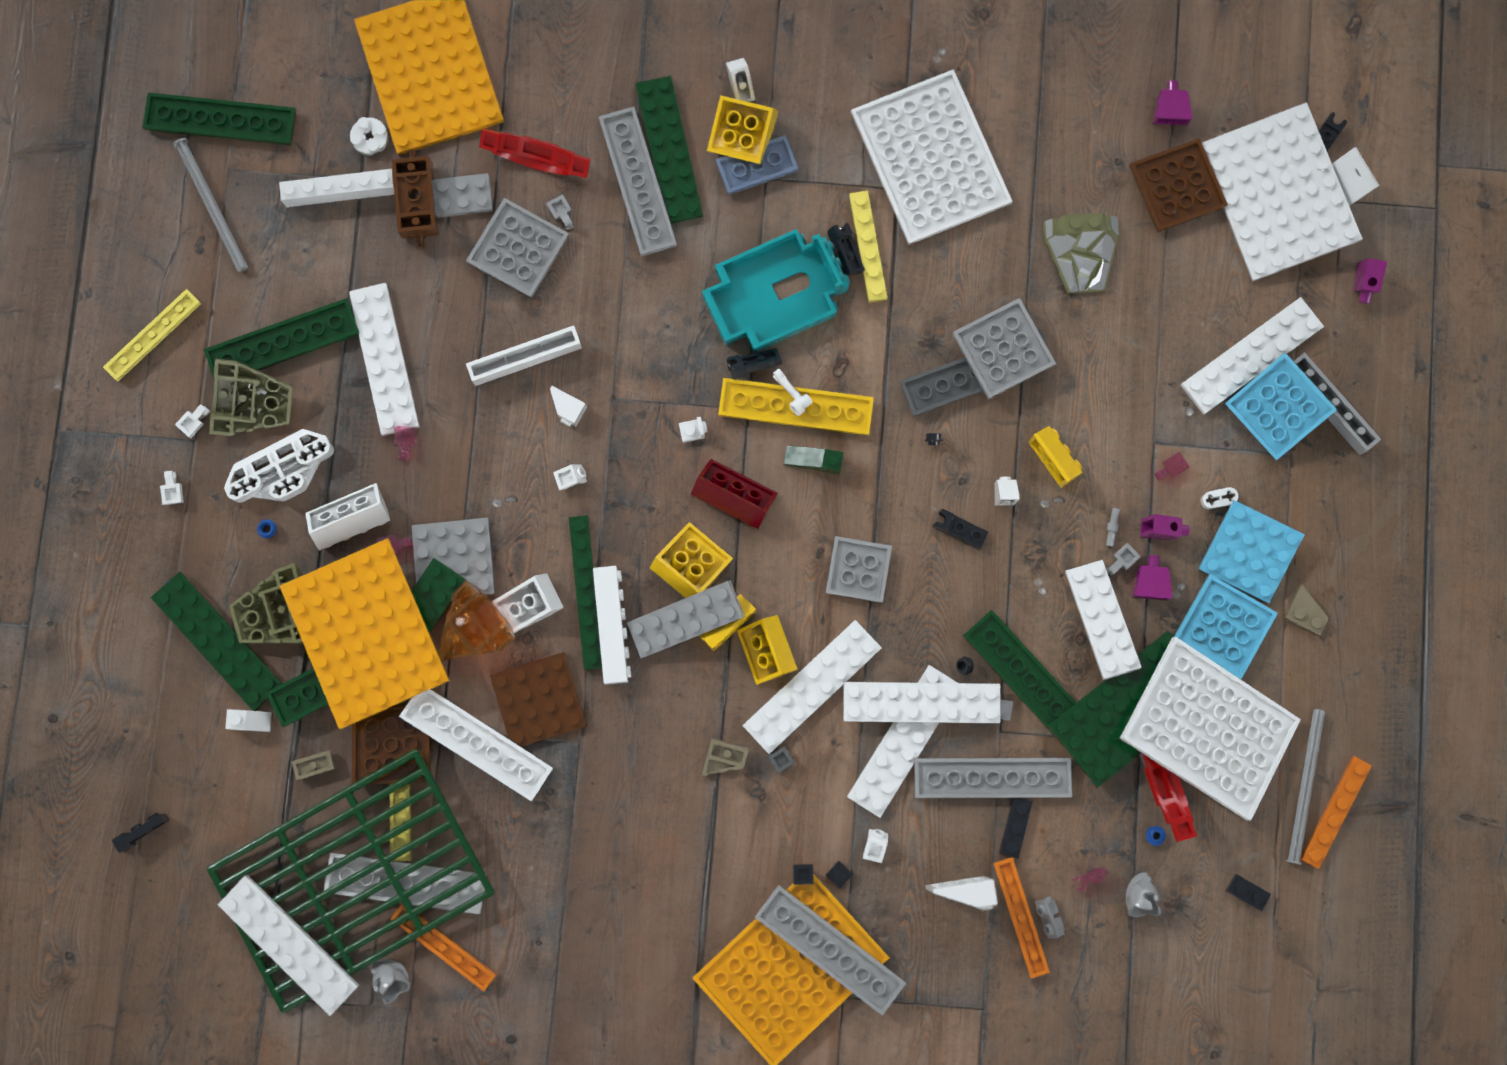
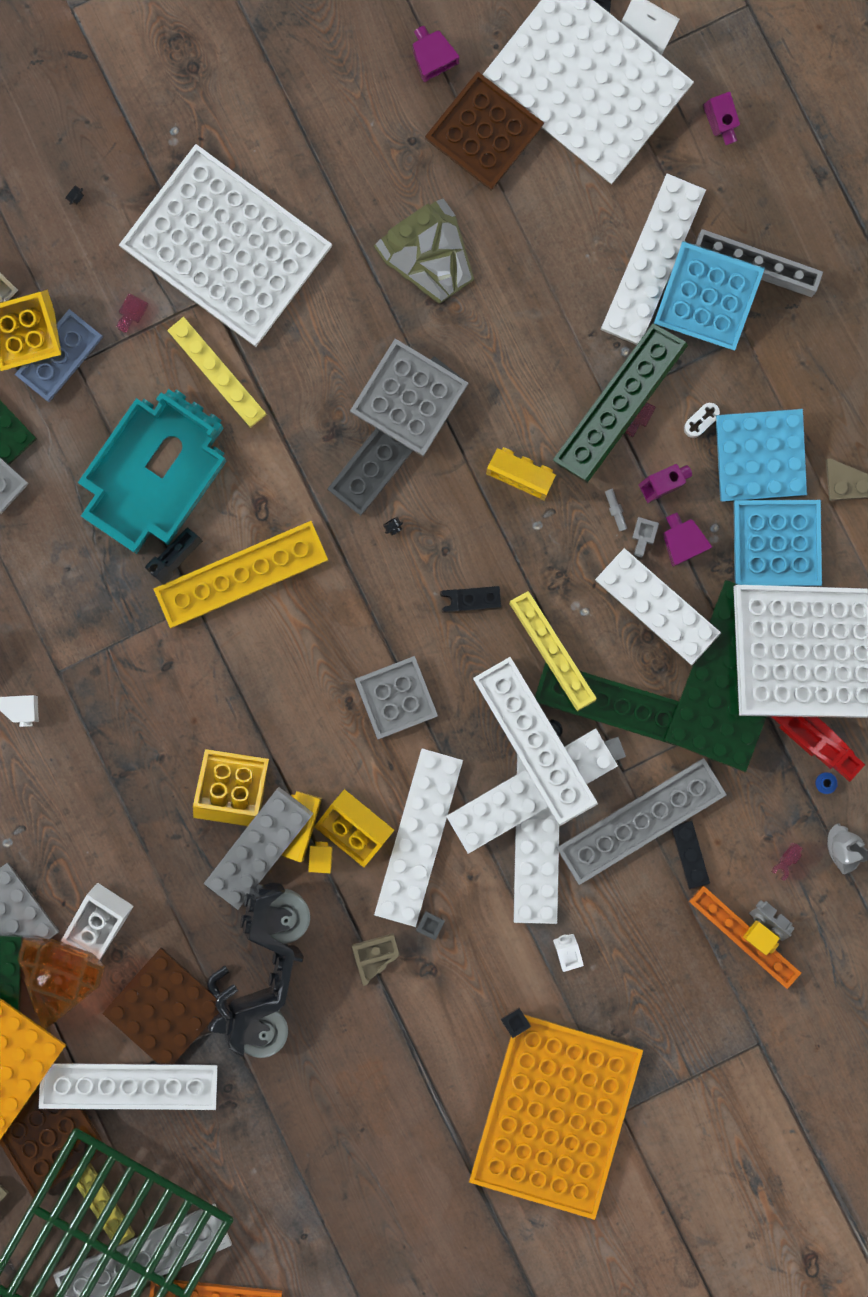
camera: 30 degrees left, 5 degrees up
(570, 476) = (62, 774): white bracket -> none
(585, 591) = (146, 877): dark green plate -> none
(602, 750) = (255, 1020): none -> black piece
(611, 625) = (189, 895): white brick -> none
(693, 430) = (154, 657): white bracket -> none
(727, 656) = (320, 857): none -> yellow brick
(734, 493) = (231, 695): dark red slope -> none
(801, 402) = (243, 568): white brick -> none
(814, 459) = (289, 615): slope -> none
(830, 950) = (583, 1078): light grey plate -> none
(831, 163) = (132, 310): none -> clear pink plate
(839, 55) = (75, 195): none -> black plate
(839, 874) = (549, 1000): black plate -> none
(846, 249) = (197, 389): black plate -> none
(947, 665) = (535, 741): none -> white plate
(972, 891) = (679, 947): white slope -> none
(1001, 605) = (552, 651): none -> light yellow plate
(1006, 491) = (493, 536): white slope -> none
(1035, 925) = (762, 938): none -> yellow brick
(1164, 447) = (620, 402): none -> plate

